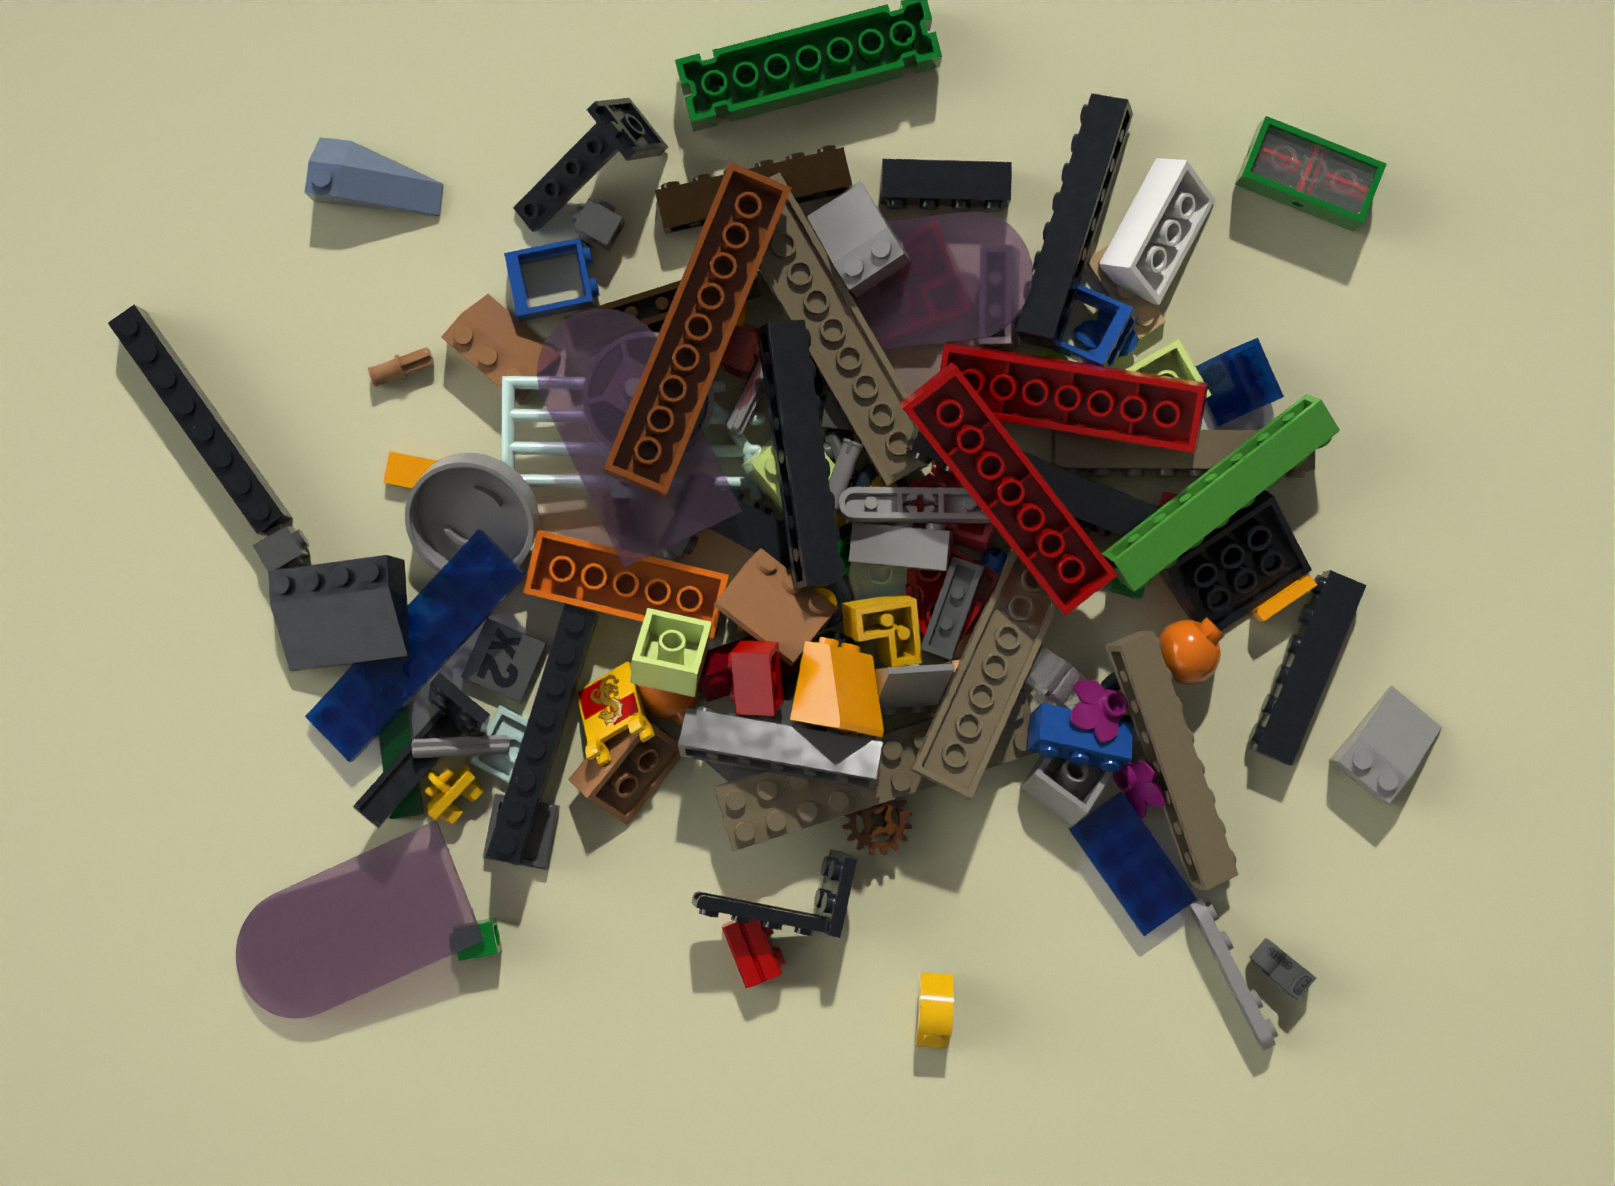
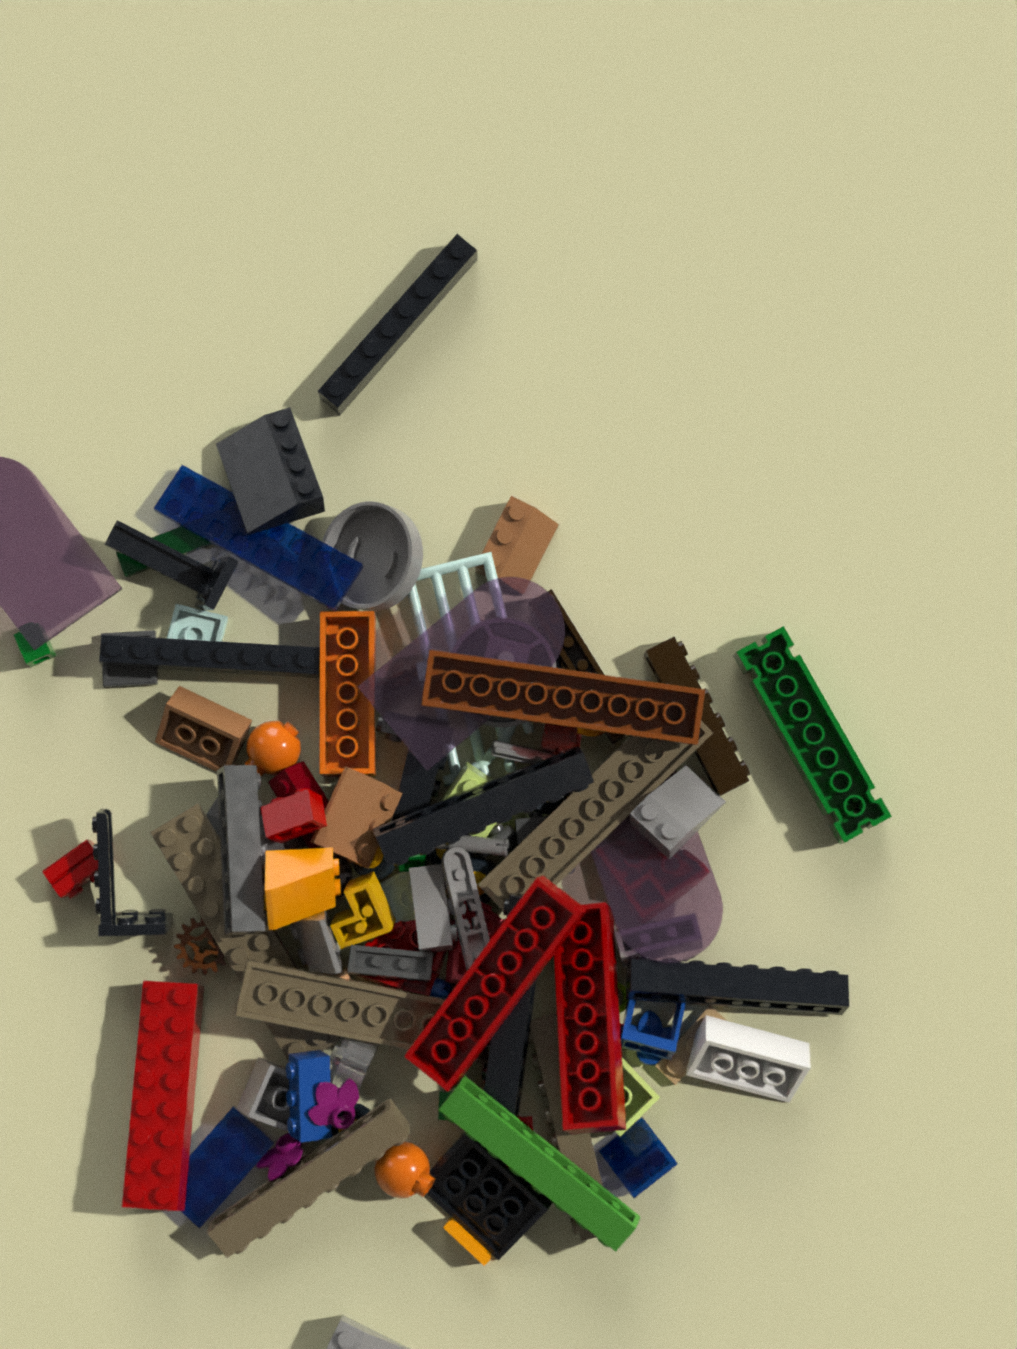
camera: 75 degrees right, 5 degrees down
(282, 548) = (311, 414): dark grey brick -> none
(359, 177) = (627, 400): sand blue wedge -> none
(400, 366) = (481, 470): medium nougat axle -> none
(405, 469) = (399, 495): light orange tile -> none
(443, 803) = (148, 592): yellow hips -> none
(460, 746) = (185, 593): light grey axle -> none
(504, 660) = (264, 610): dark grey tile -> none
(515, 262) = (572, 546): blue window -> none
(597, 224) = (636, 597): dark grey brick -> none
(608, 709) = (243, 704): yellow flag -> none
(617, 128) = (715, 595): black bracket -> none
(670, 652) = (298, 741): yellowish green brick -> none
(935, 1010) = (59, 1031): yellow brick -> none
(946, 184) = (743, 873): black brick -> none
(1039, 906) = (163, 1096): none -> red brick
(1247, 1000) = (125, 1292): light grey piece -> none
(1282, 968) = (158, 1315): dark grey leg -> none
(1306, 667) = (414, 1275): black brick -> none
(1310, 173) = (829, 1177): brick -> none

